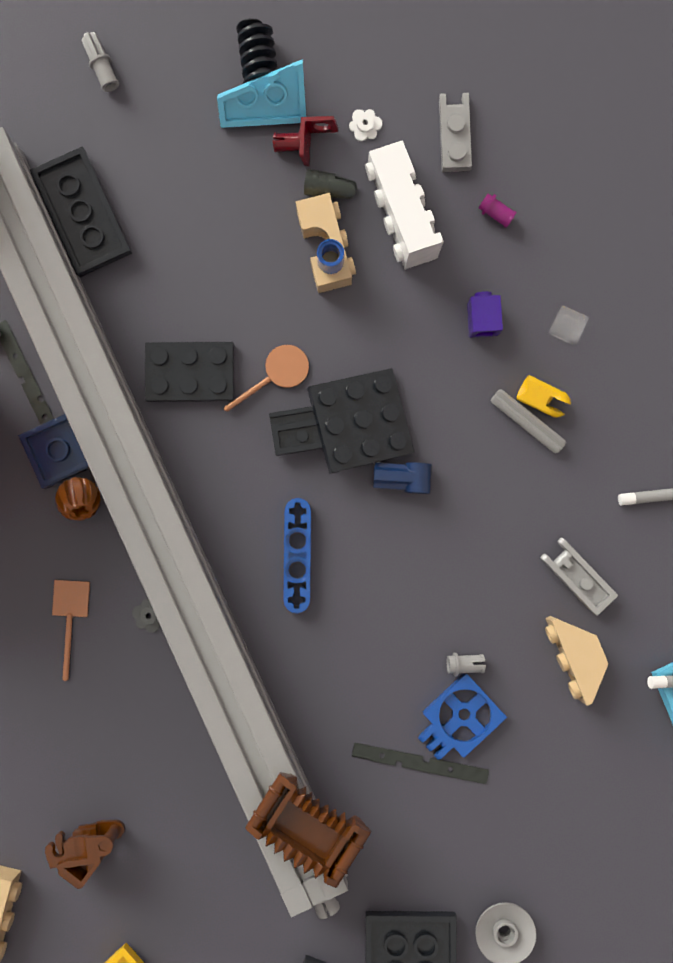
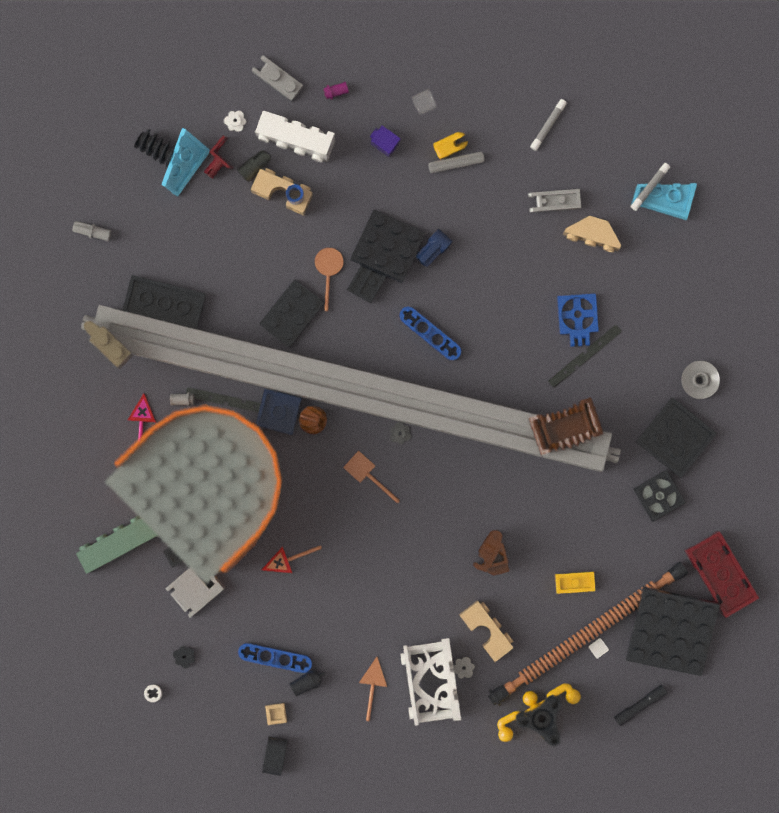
camera: 55 degrees left, 0 degrees up
(464, 664) = (550, 296): light grey pin -> none

